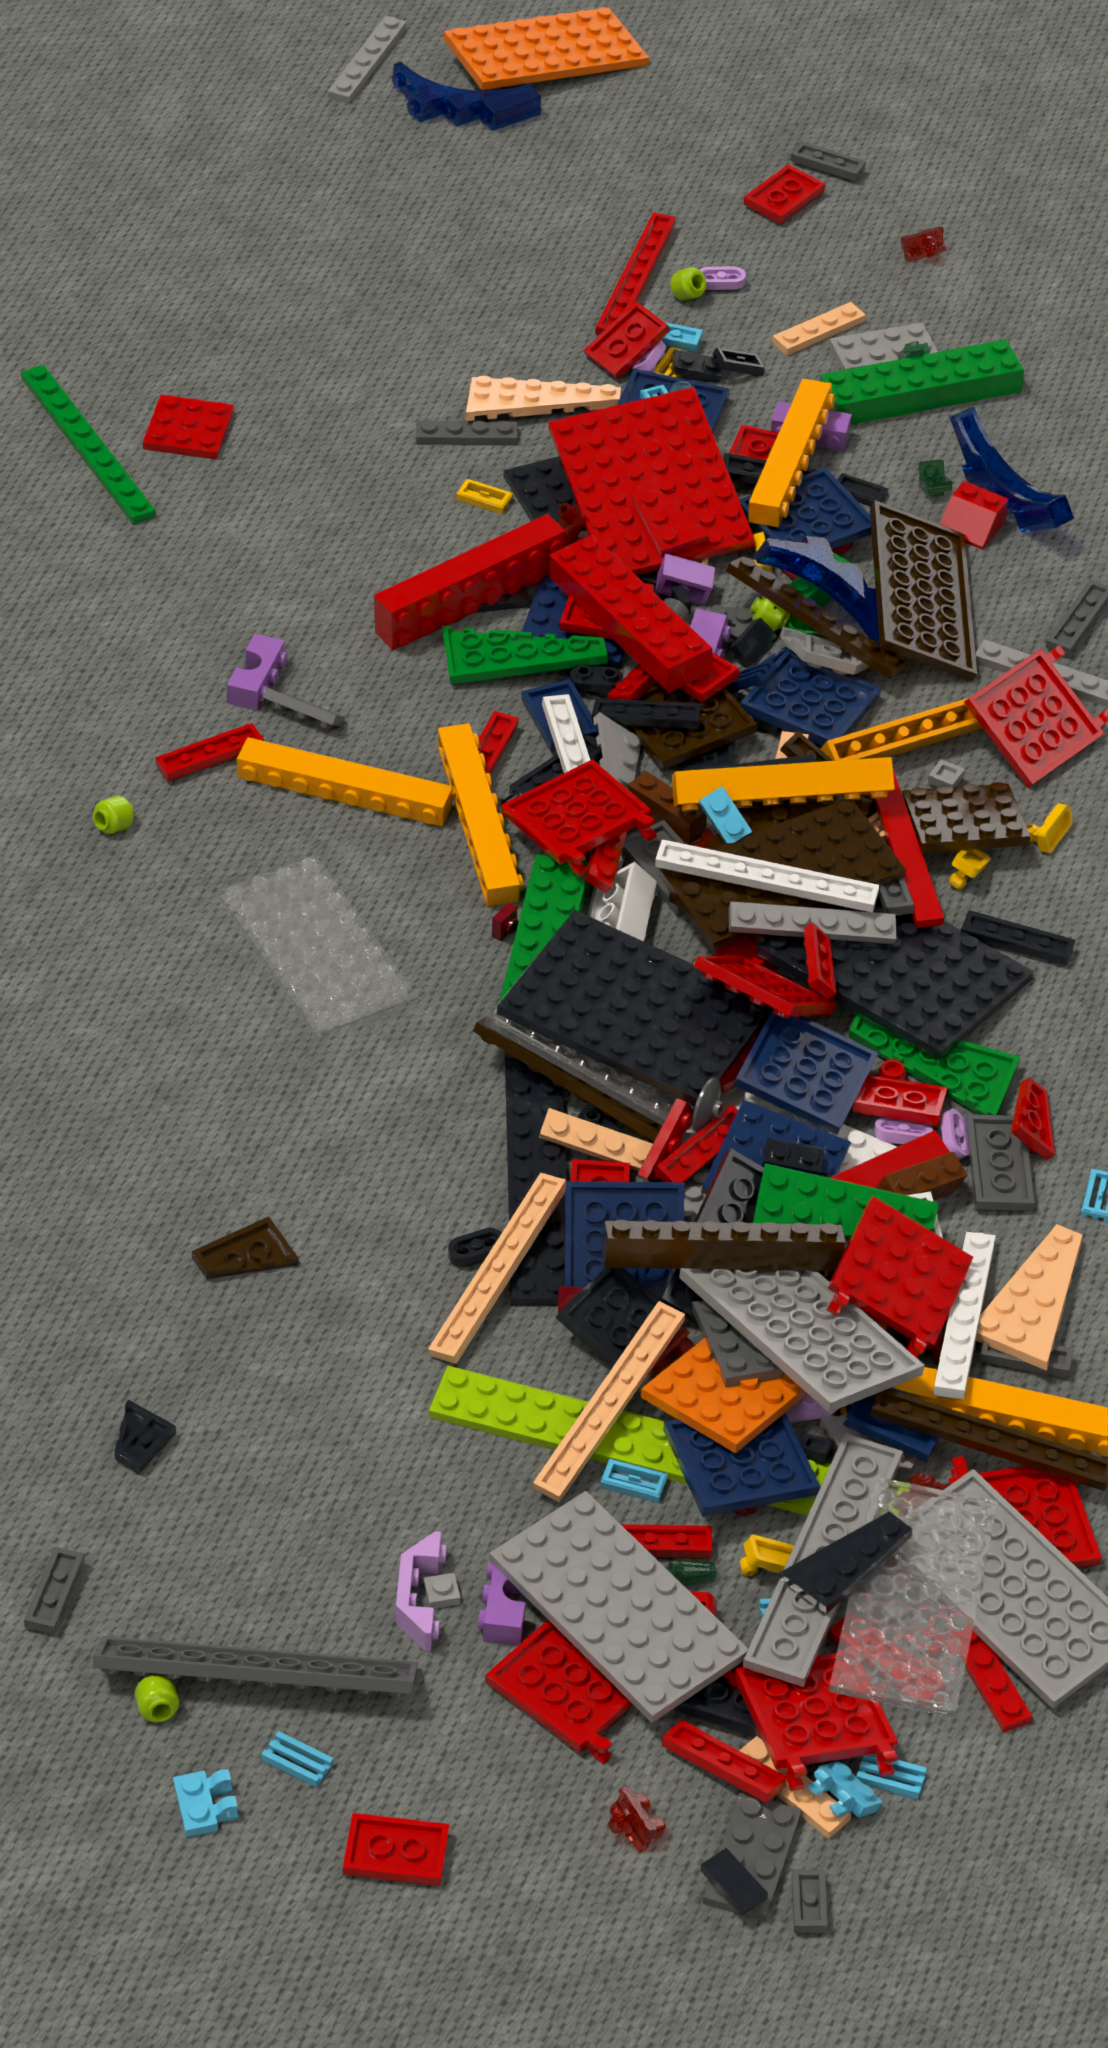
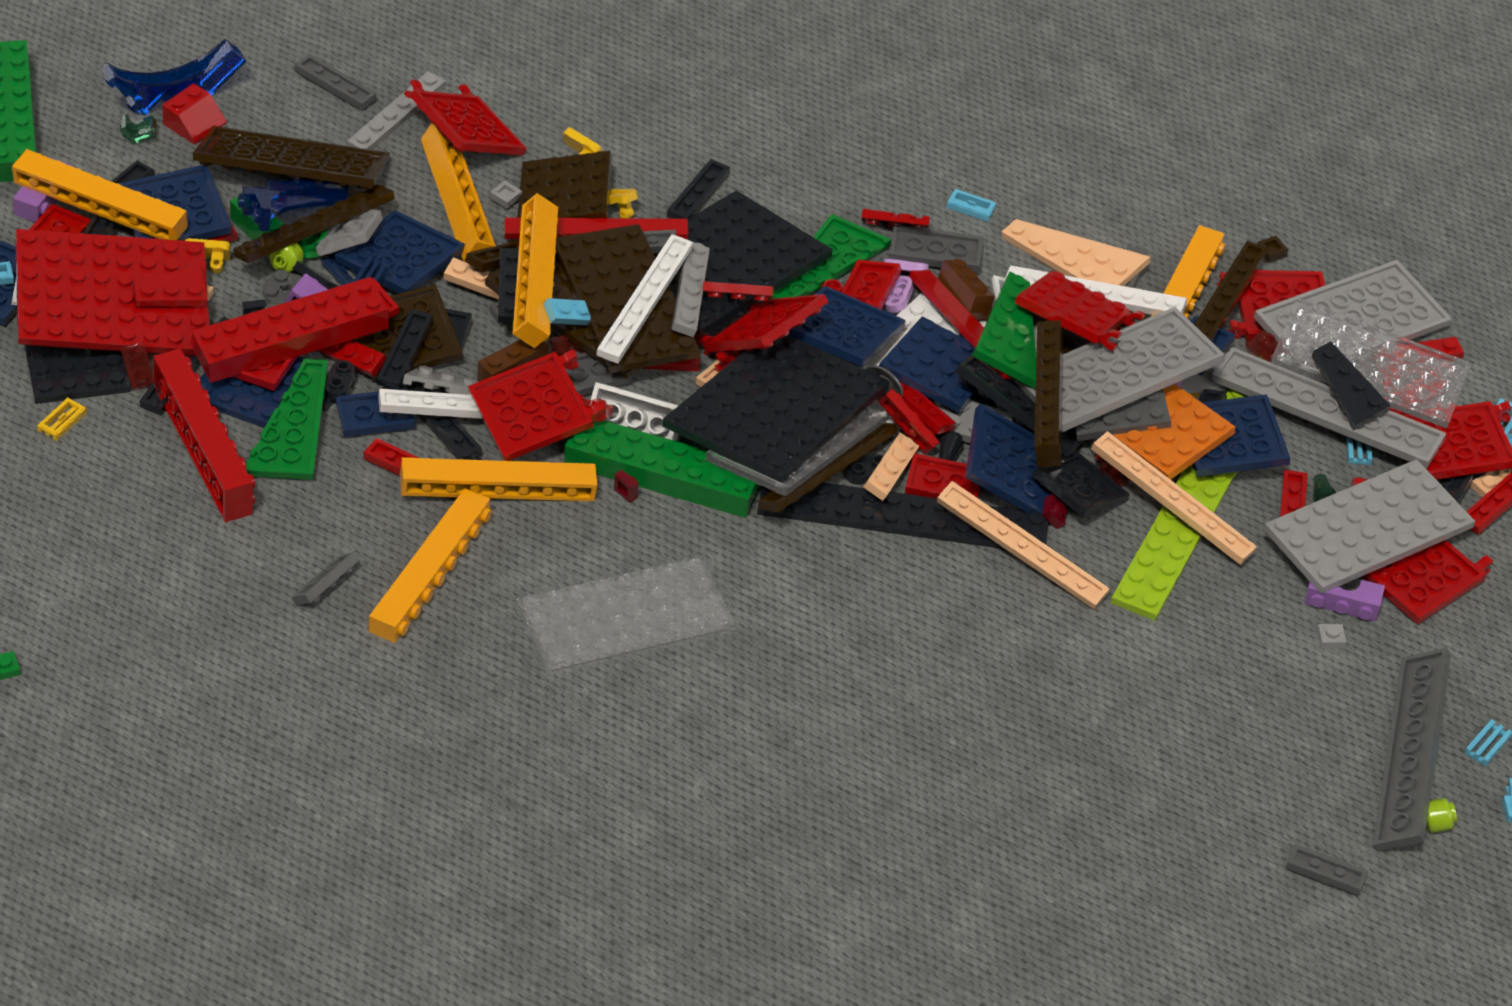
camera: 85 degrees left, 0 degrees up
(113, 815) = (438, 728): lime head -> none
(141, 1436) = (1171, 797): black wing -> none
(205, 752) = (366, 653): red plate -> none
(246, 1251) = (975, 705): dark brown wing -> none
(263, 662) = (252, 595): medium lavender arch -> none
(419, 1559) = (1336, 653): lavender slope -> none
(472, 1247) = (990, 566): black plate -> none
(632, 1484) = (1237, 495): medium azure tile -> none
(691, 575) = (228, 299): medium lavender brick -> none
(764, 1553) = (1317, 441): yellow piece -> none
(793, 1156) = (945, 346): black plate -> none

